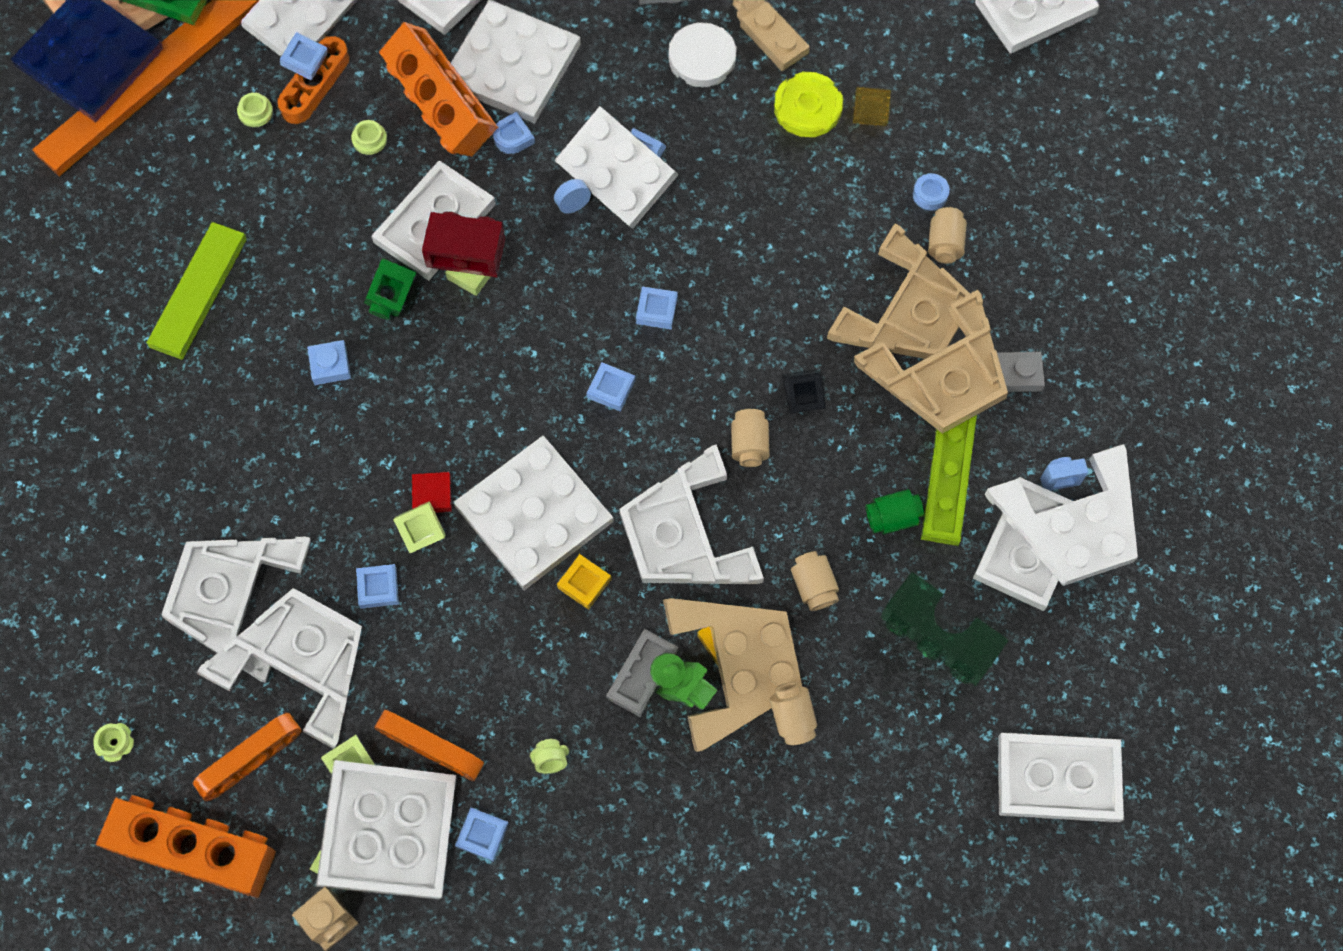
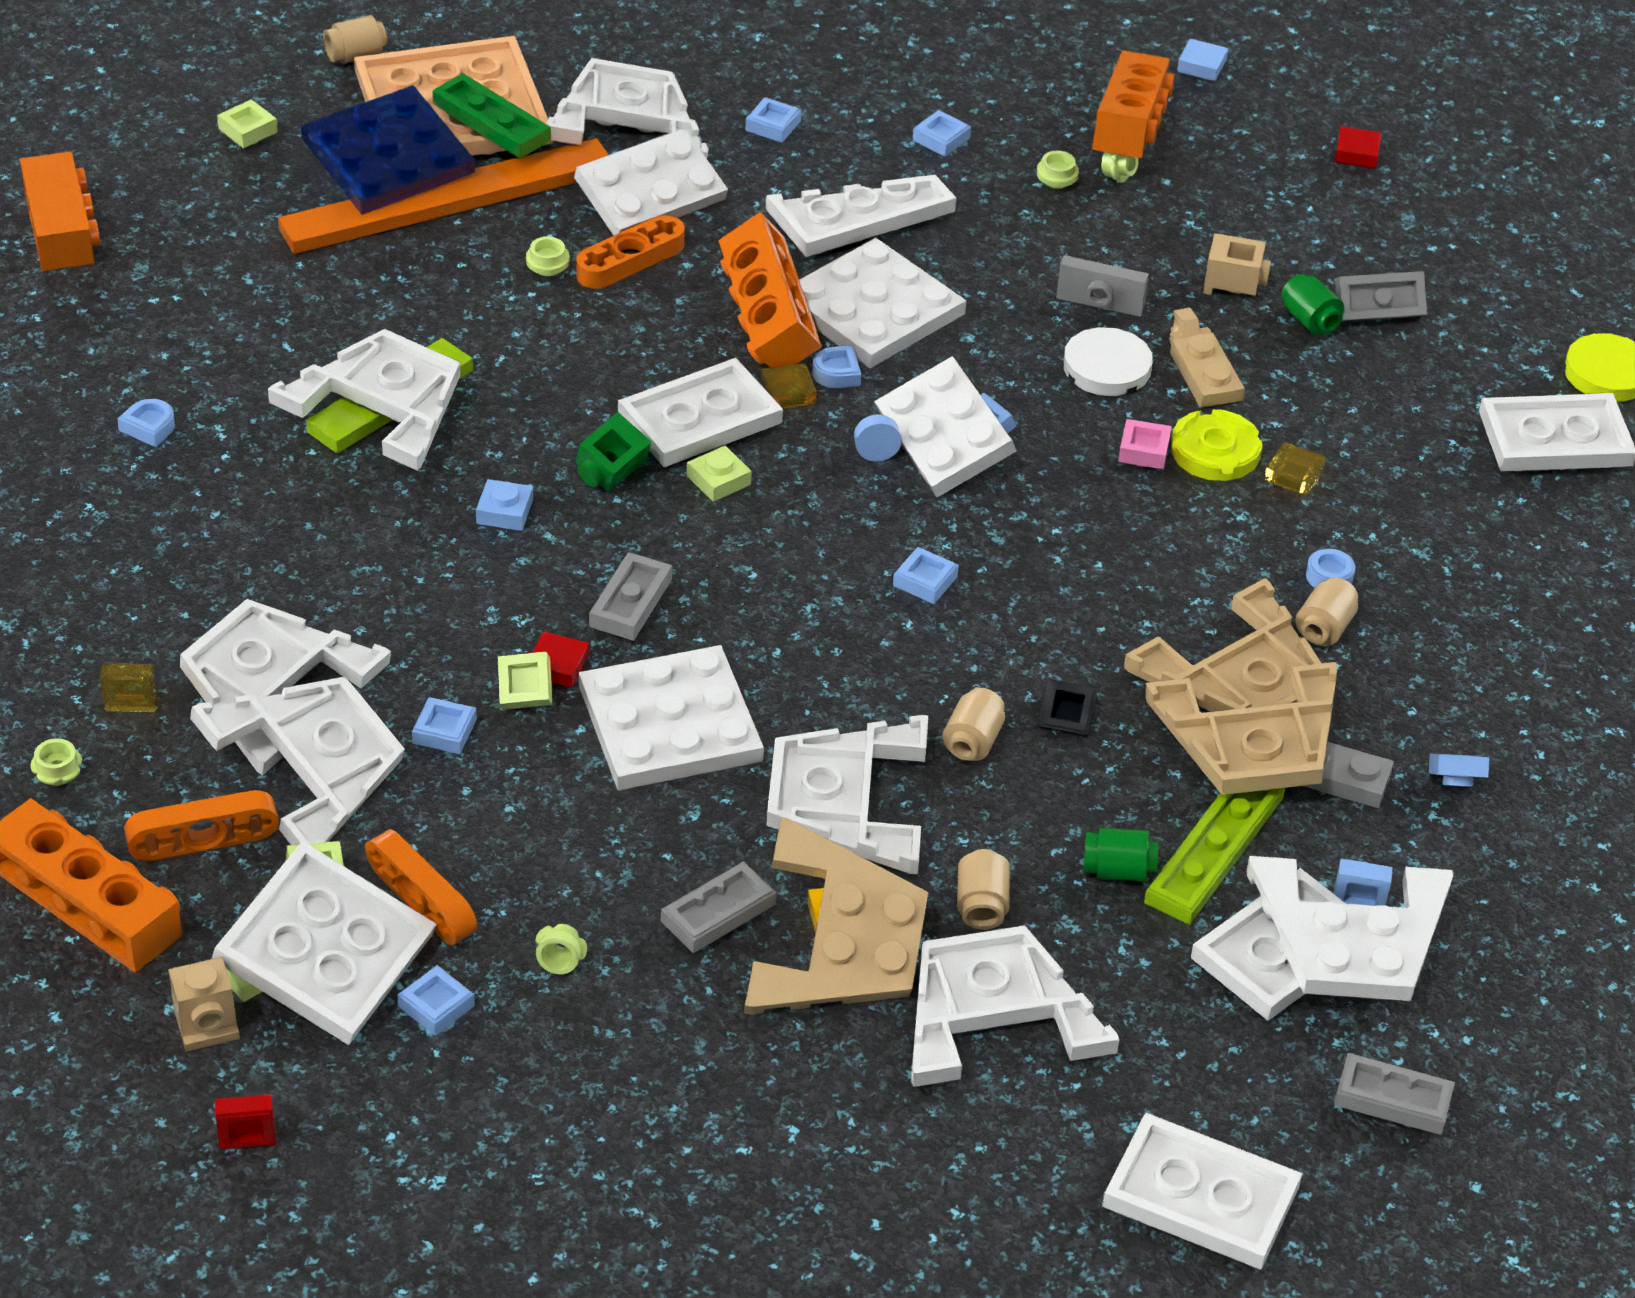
camera: 20 degrees right, 25 degrees down
(26, 386) = (148, 421): none -> light blue tile
(134, 653) = (128, 687): none -> clear yellow tile
(197, 284) = (388, 377): none -> white wing
(303, 56) = (629, 219): light blue tile -> none
(369, 137) = (666, 318): yellowish green plate -> none
(459, 416) = (630, 596): none -> light grey plate
(463, 244) = (721, 431): dark red brick -> none
(485, 167) = (789, 385): none -> clear yellow tile
(584, 581) = (694, 796): yellow plate -> none
(611, 386) = (829, 630): light blue tile -> none
(681, 681) = (760, 919): bright green hips -> none
(761, 126) = (1144, 444): none -> bright pink plate
(793, 713) = (886, 1001): tan brick -> none
(852, 661) = (993, 983): none -> white wing
(966, 653) = (1149, 1019): clear green arch -> none
(1086, 340) = (1458, 769): none -> light blue plate
(1149, 641) = (1394, 1093): none -> light grey plate

